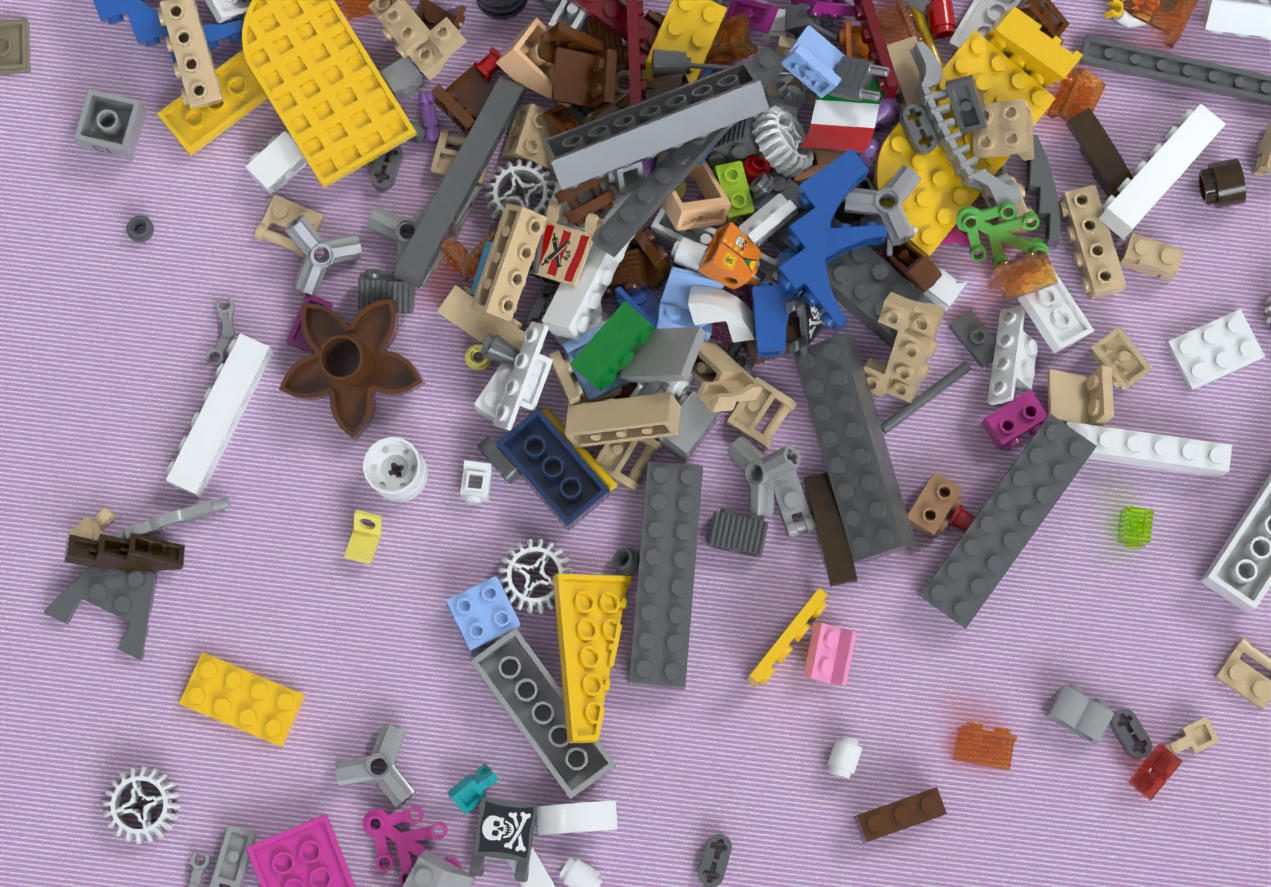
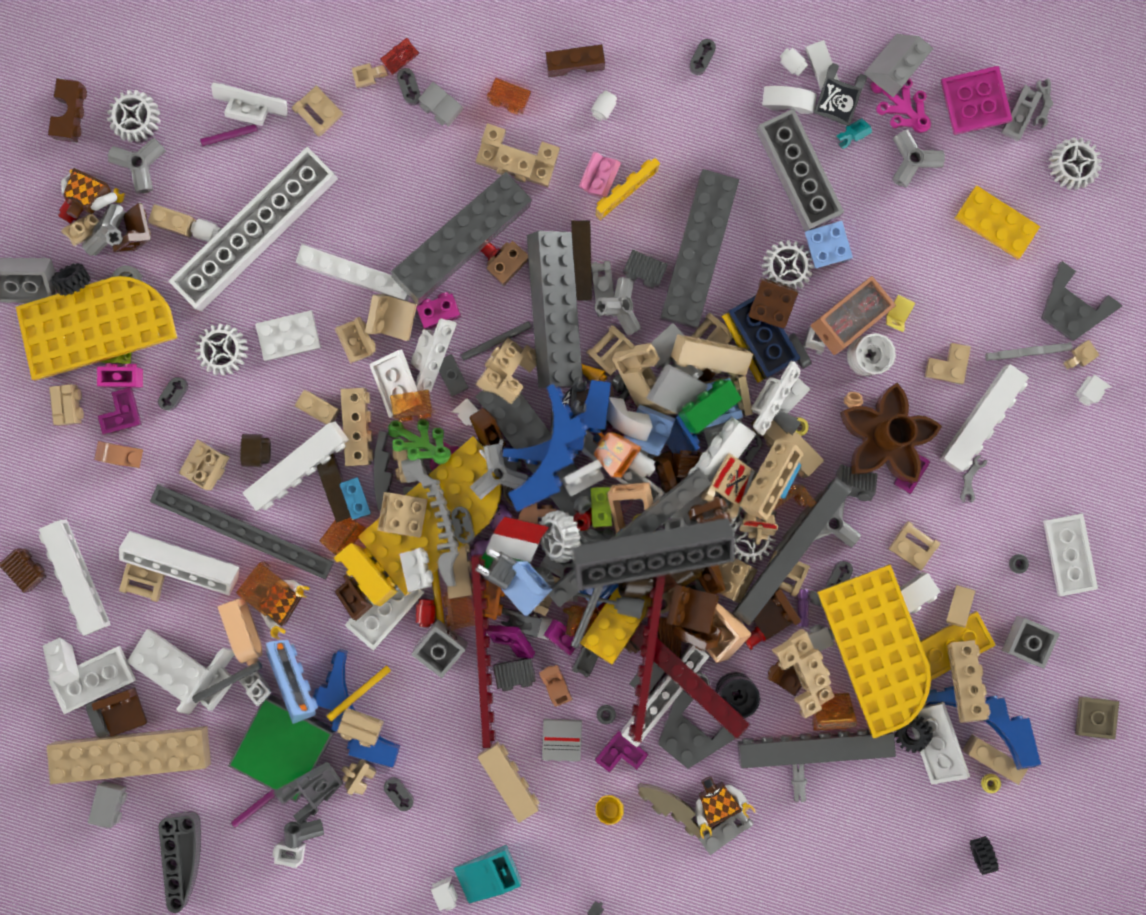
camera: 175 degrees left, 10 degrees up
(70, 253) = (1070, 554): none -> white plate
(71, 482) = (1092, 390): none -> white window
(134, 554) = (1063, 332): dark brown slope -> none
(213, 155) = (960, 606): none -> tan tile
(273, 477) = (953, 369): none -> tan plate
(308, 240) = (905, 527): light grey piece -> none
(408, 412) = (853, 399): none -> light nougat plate
(431, 518) = (853, 315): none -> brick
(498, 204) = (758, 530): none -> tan hips
(548, 513) = (773, 303): none -> reddish brown bracket
(588, 637) = (761, 215): yellow wing -> none
(626, 561) = (726, 268): dark grey plate -> none
(726, 36) = (586, 616): none -> dark grey bar
(777, 373) = (593, 373): none -> light orange cone
(956, 651) = (516, 162): none -> tan bracket
(967, 58) = (416, 569): none -> white bracket
(967, 103) = (424, 535): dark grey slope -> none
(1071, 144) = (355, 498): none -> dark azure bracket
(1135, 527) = (373, 222): clear neon green brick -> none

